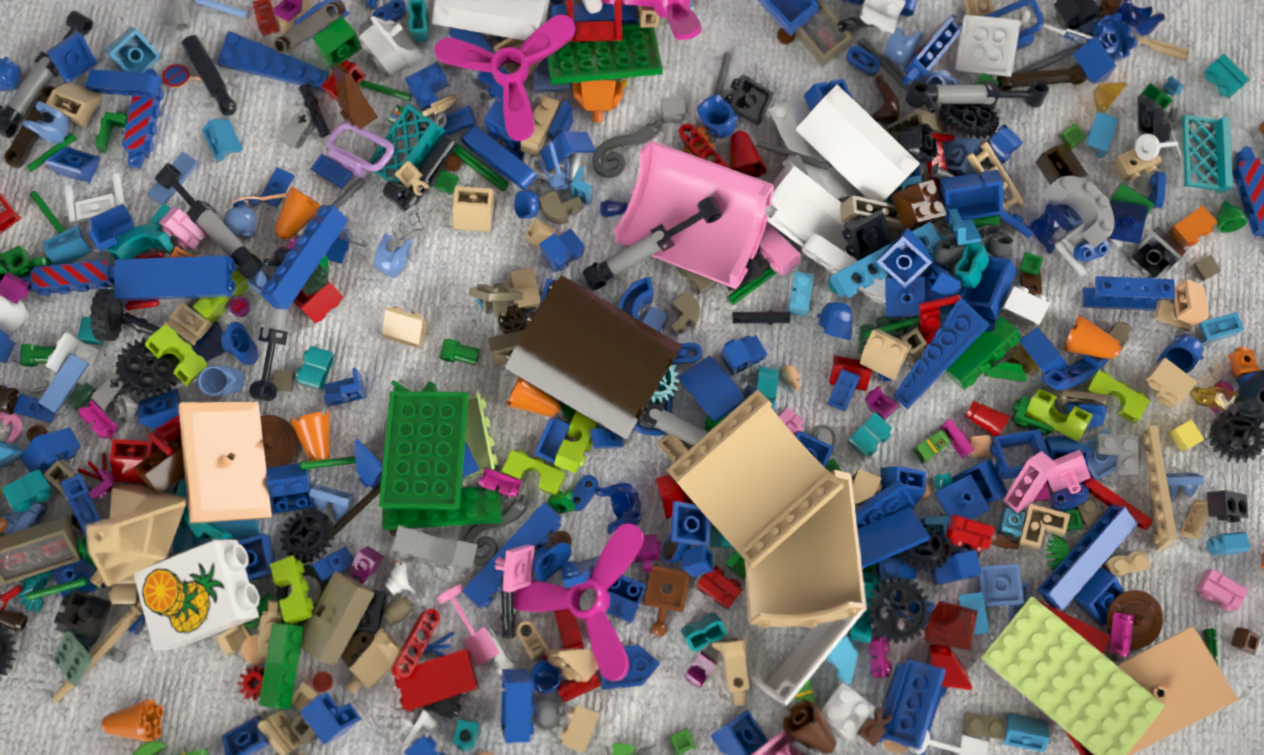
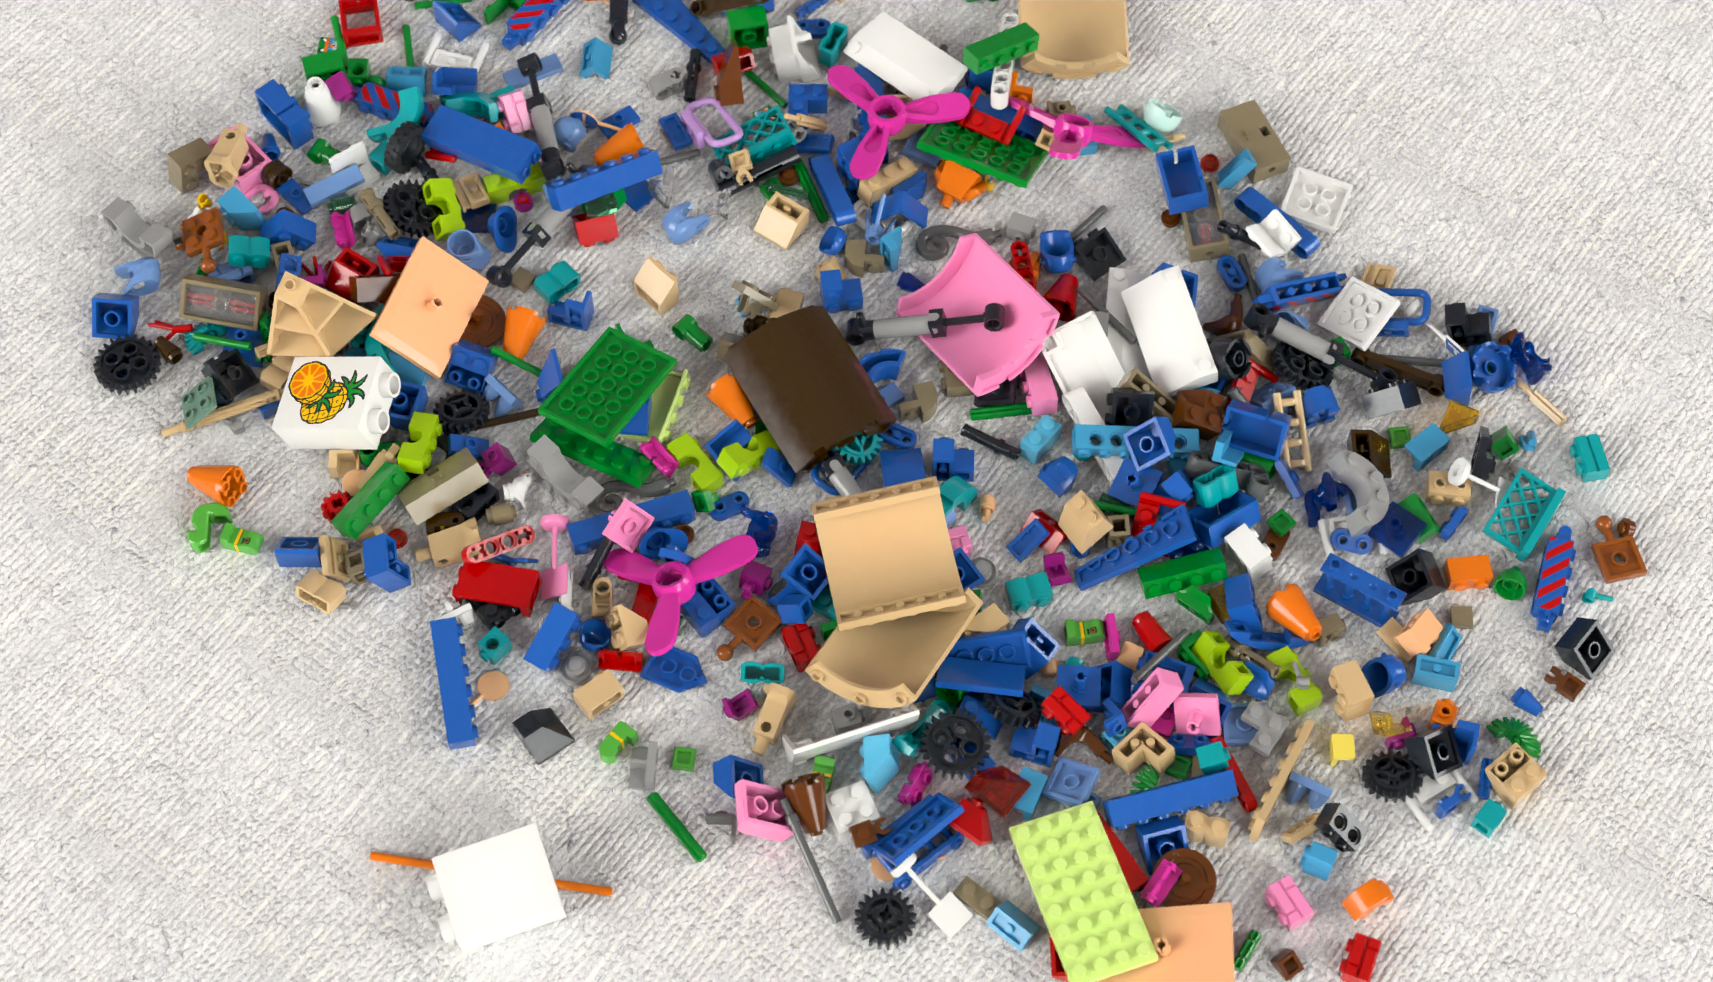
camera: 30 degrees right, 15 degrees down
(91, 280) = (410, 110): none -> teal arch
(116, 388) = (375, 208): none -> dark tan pin
(461, 179) = (787, 191): none -> clear green tile
(792, 635) = (846, 718): none -> light grey brick
(1003, 510) = (1114, 718): none -> blue bracket
(1011, 439) = (1153, 662): none -> dark grey bar
(1056, 110) = (1396, 397): none -> brick
(1101, 502) = (1213, 757): none -> teal brick
(1130, 397) = (1301, 681): none -> light grey hand
(1212, 298) = (1447, 643): none -> dark azure tile

